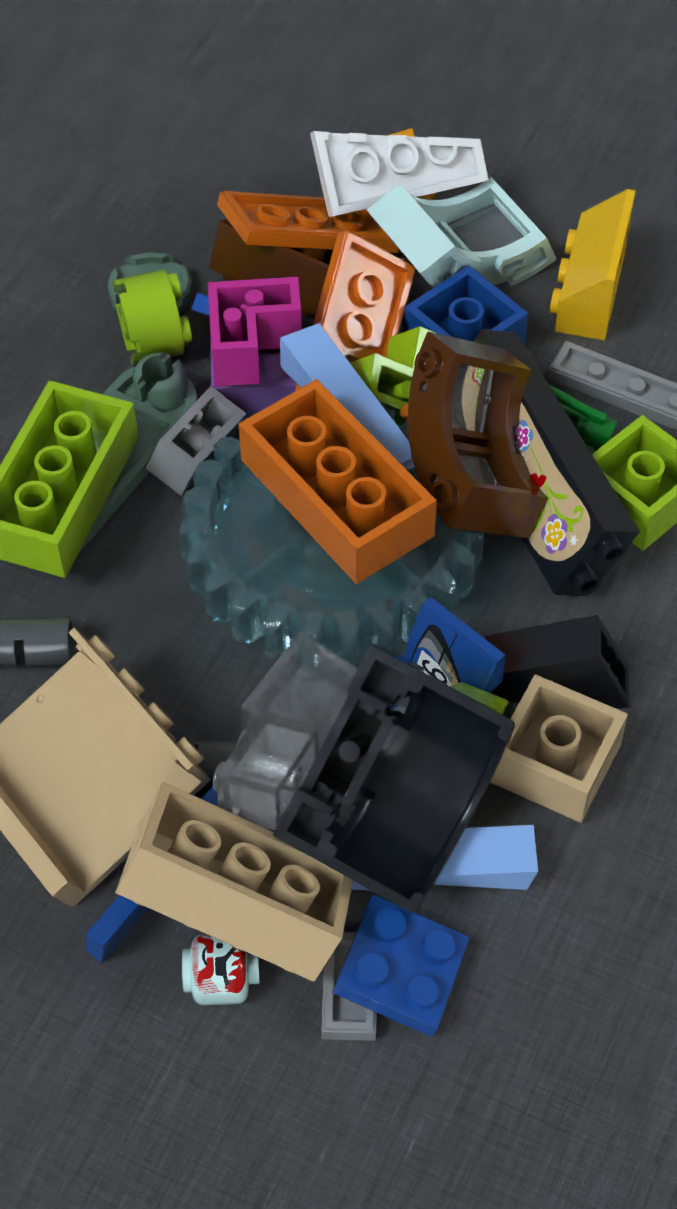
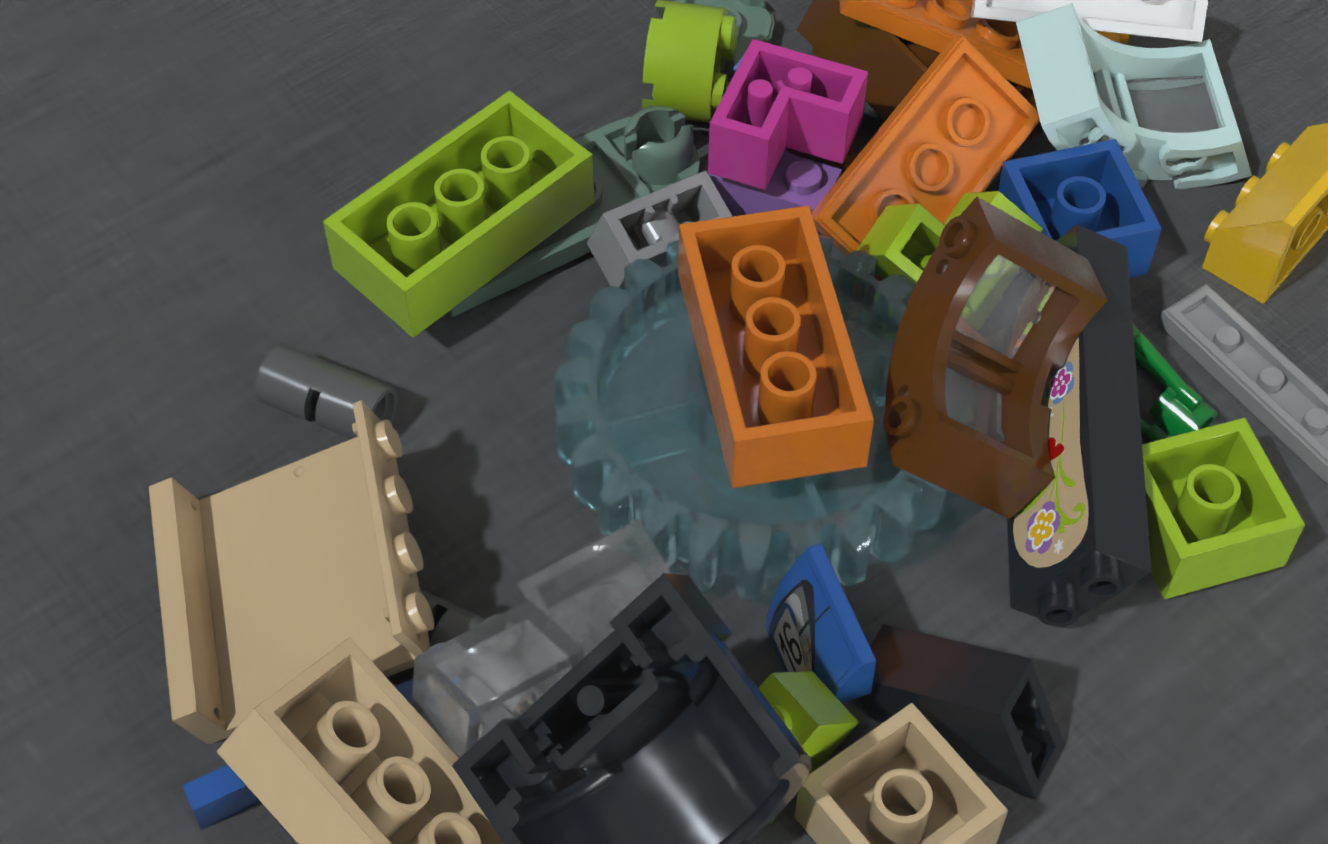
camera: 25 degrees right, 0 degrees up
(313, 356) = (846, 214): light blue slope -> none

